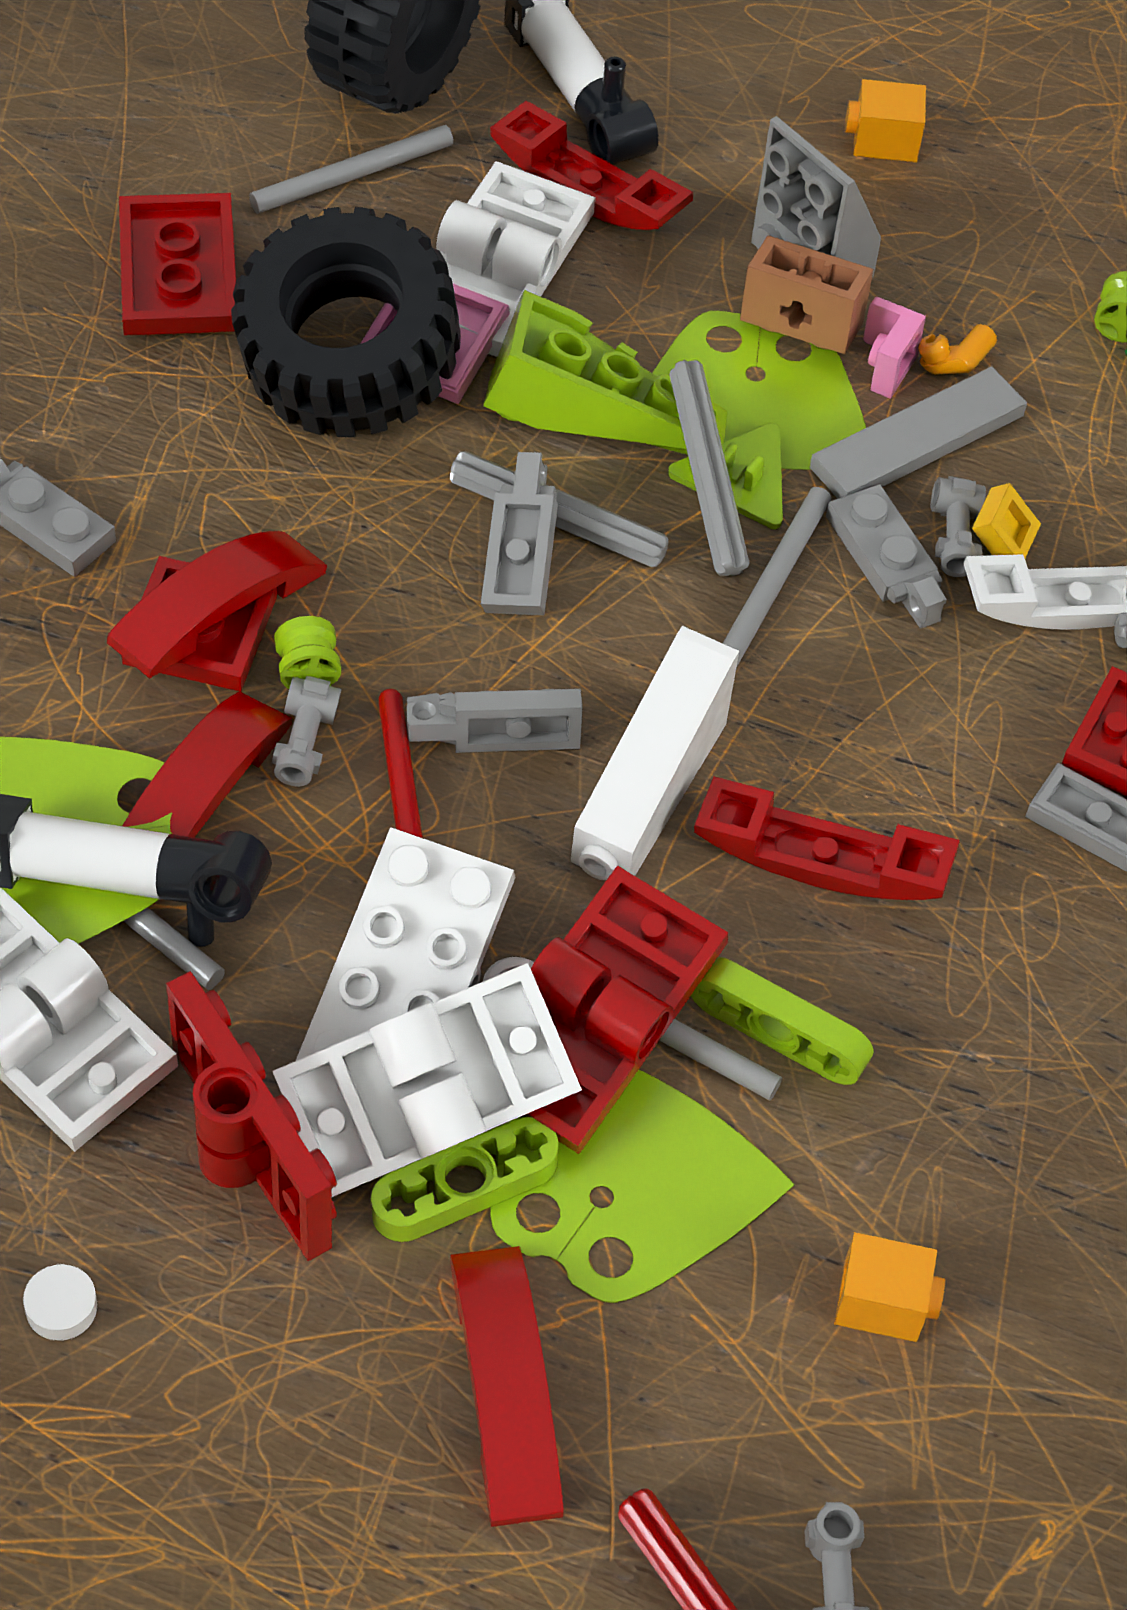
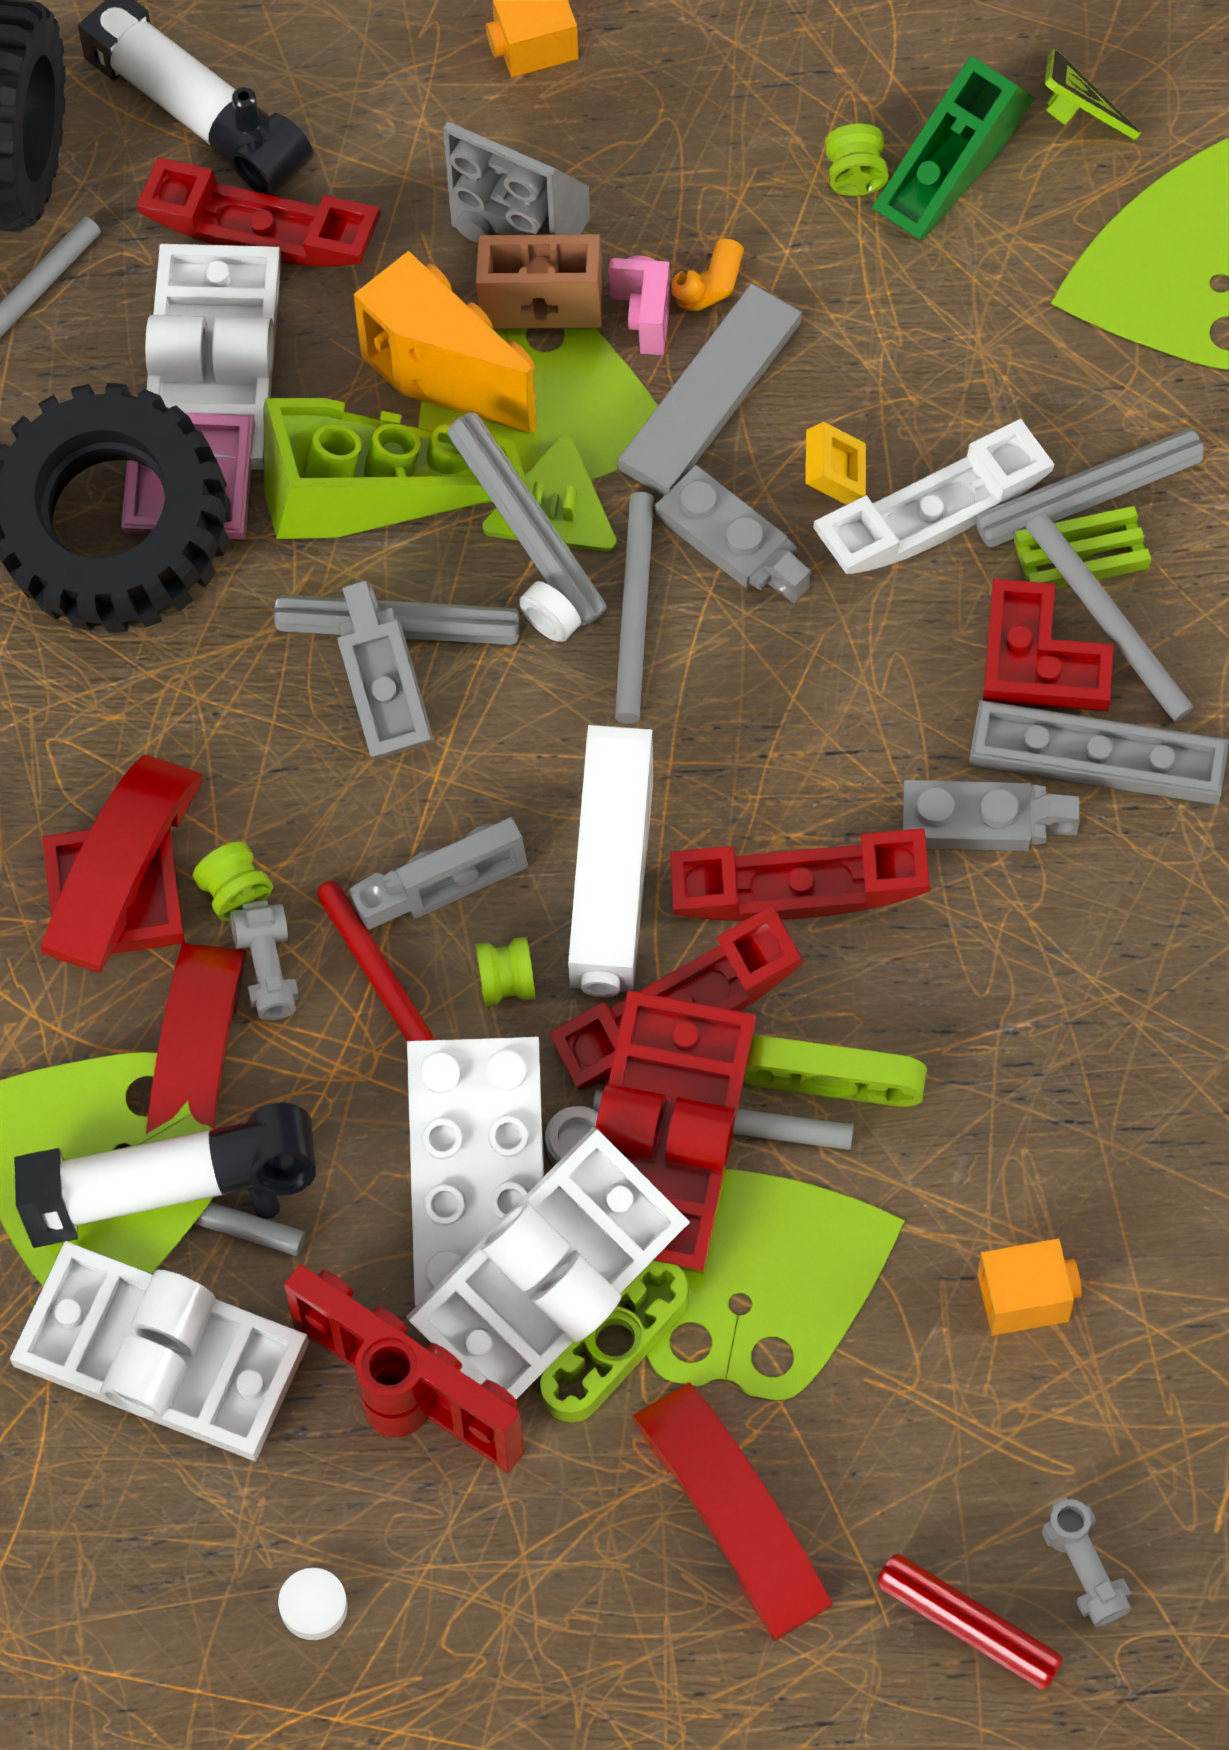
camera: 15 degrees left, 10 degrees up
(515, 819) = (505, 971): none -> lime wheel
(695, 548) = (549, 611): none -> white tile
(696, 308) = (442, 348): none -> light orange slope
(741, 895) = (730, 977): none -> red slope
(959, 502) = (781, 451): light grey bar -> none
(1027, 861) = (987, 814): none -> light grey hinge

